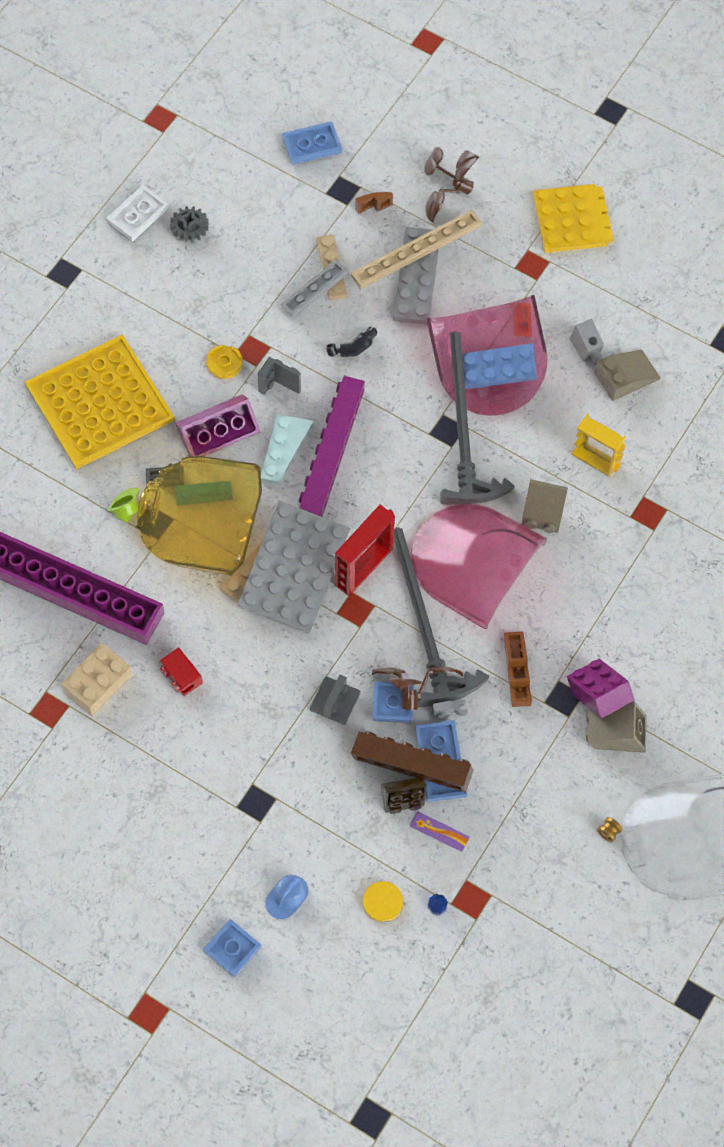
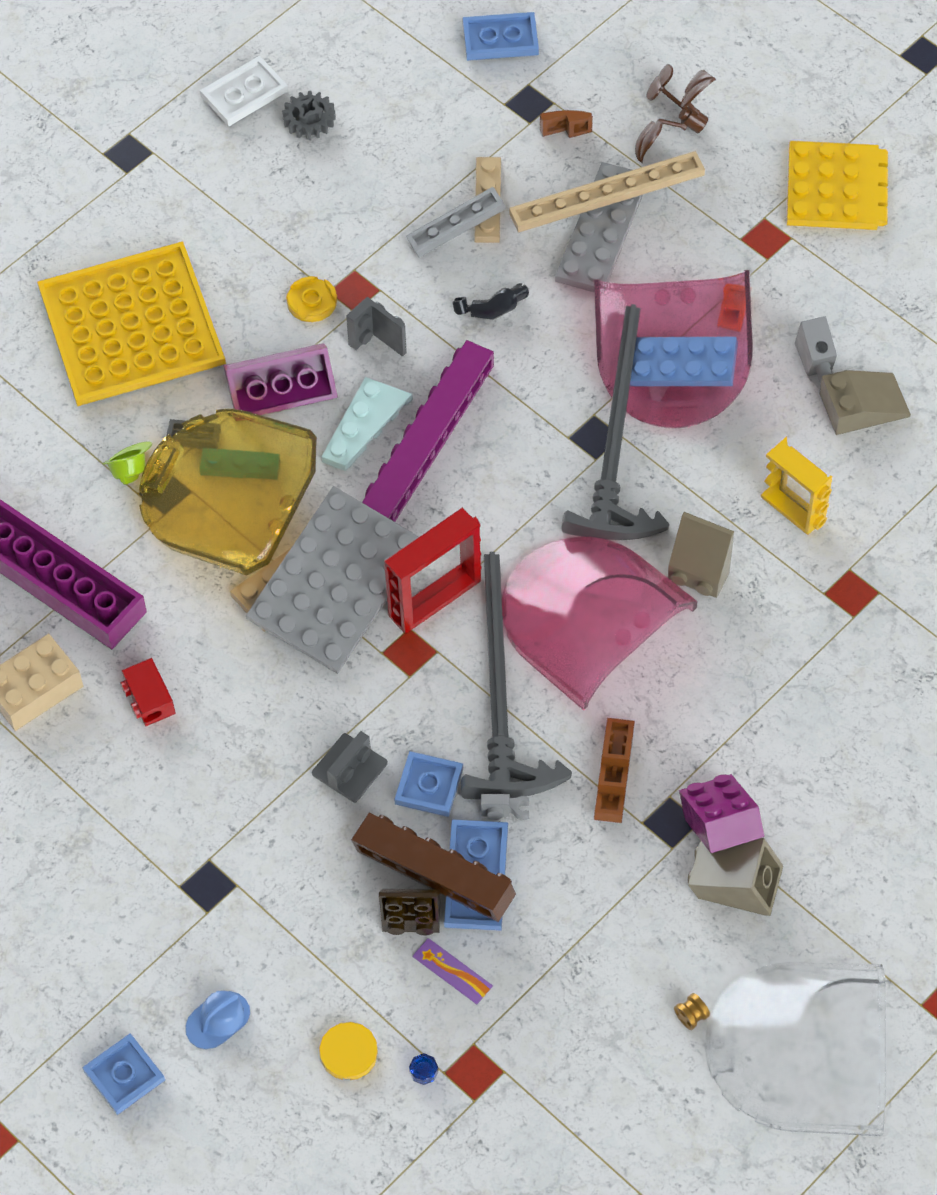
camera: 15 degrees right, 5 degrees down
(408, 695) = (451, 778): reddish brown plant -> none

